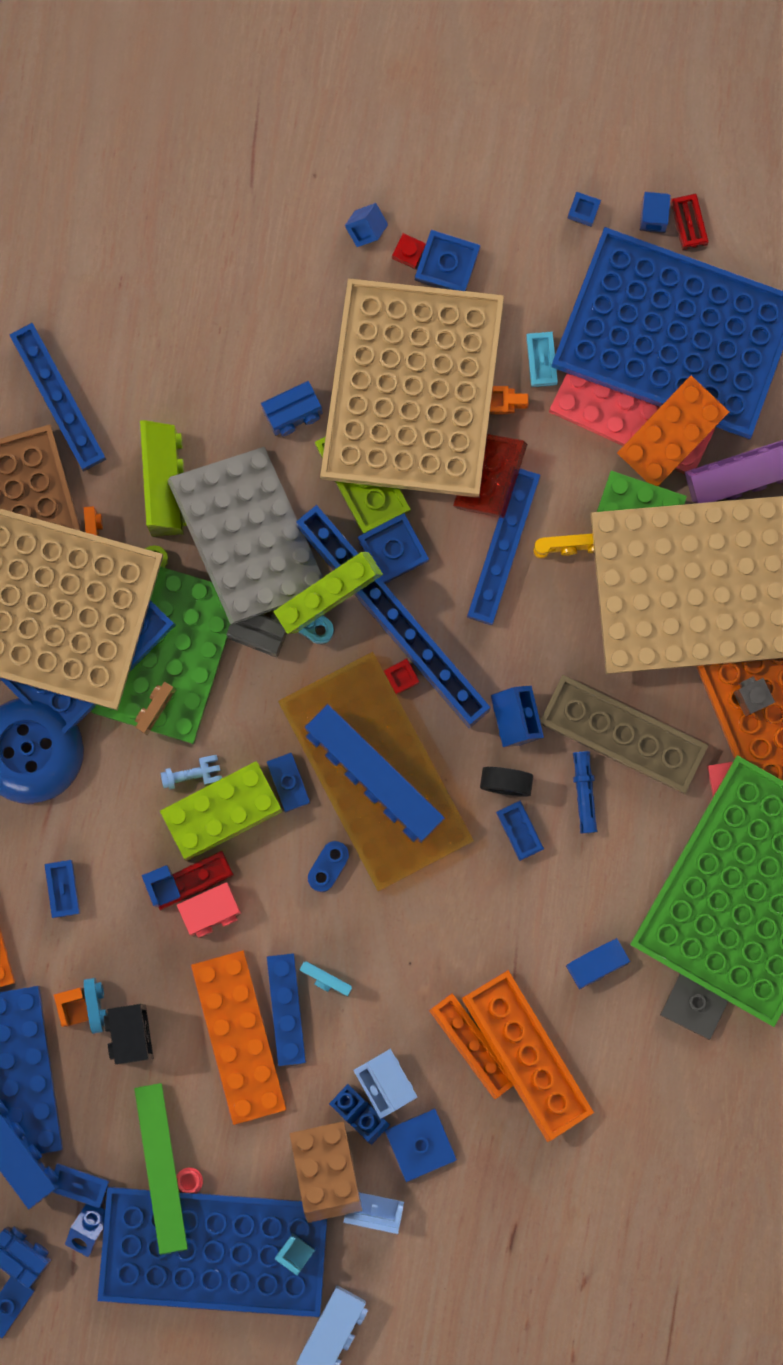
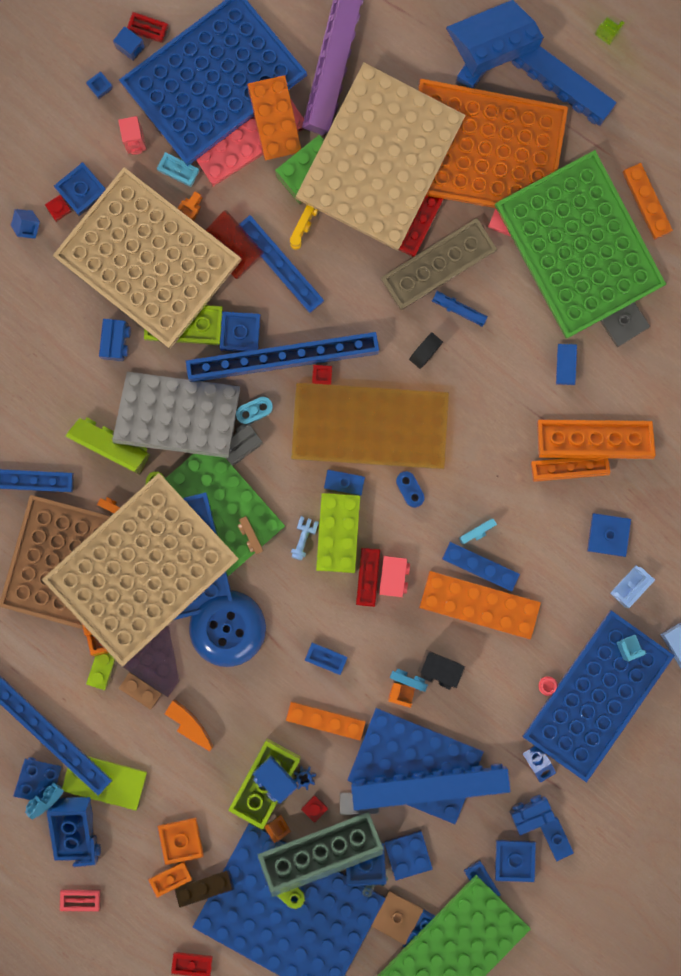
camera: 65 degrees left, 5 degrees up
(80, 1185) = (512, 752): blue plate -> none
(161, 886) = (362, 597): blue panel -> none
(161, 1169) = (531, 698): bright green tile -> none
(325, 1172) = (593, 600): medium nougat brick -> none
(328, 592) = (245, 386): lime brick -> none
(359, 1114) = (569, 560): blue slope -> none
(374, 773) = (373, 426): blue brick -> none
(385, 1083) = (562, 533): light blue brick -> none
(516, 712) = (390, 320): blue brick -> none
(519, 830) = (459, 361): blue plate -> none
(546, 282) = (132, 135): none -> coral brick
(656, 683) = (420, 225): none -> red plate
(753, 695) = (466, 171): flat silver brick -> none

